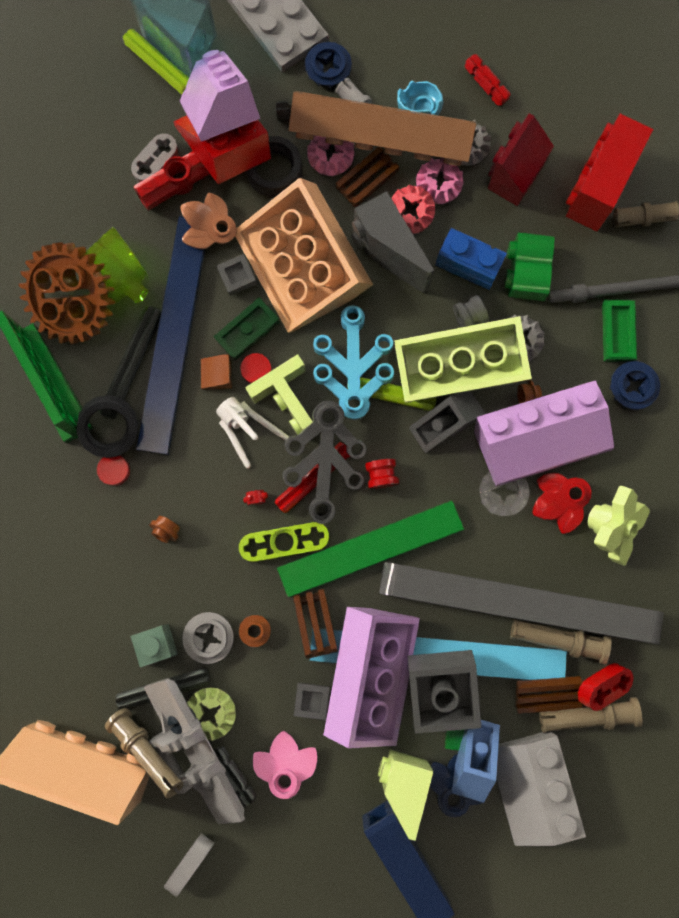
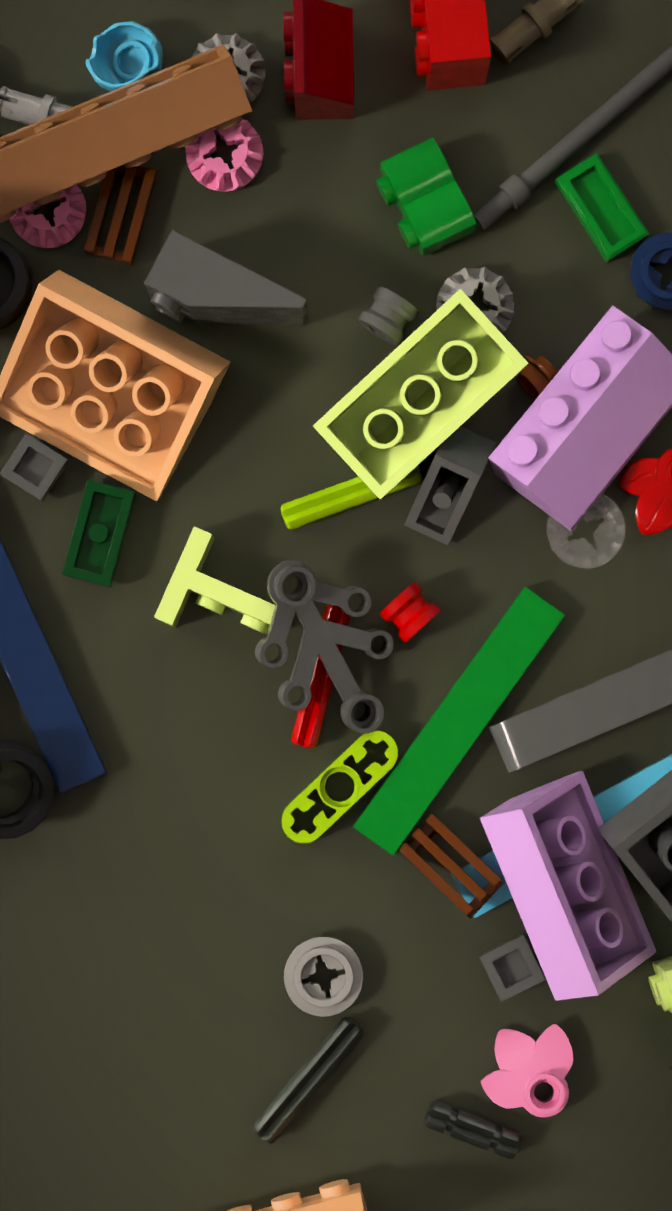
camera: 30 degrees left, 5 degrees up
(113, 470) = (48, 842): red tile -> none
(135, 742) = (321, 1168): dark tan pin -> none
(154, 645) = (261, 1032): sand green brick -> none
(164, 529) = (171, 874): dark orange plate -> none
(184, 731) = (376, 1112): light grey piece -> none
(216, 372) = (96, 619): dark orange slope -> none
(225, 716) = (379, 1050): yellowish green gear -> none
(234, 415) = (160, 661): white plant -> none
(254, 367) = (146, 579): red tile -> none
(255, 497) = (262, 753): red piece -> none
(264, 627) = (371, 912): dark orange plate -> none
(353, 366) = (278, 493): medium azure plant -> none
(425, 210) = (233, 211): coral gear -> none
(470, 258) = (339, 240): blue brick -> none

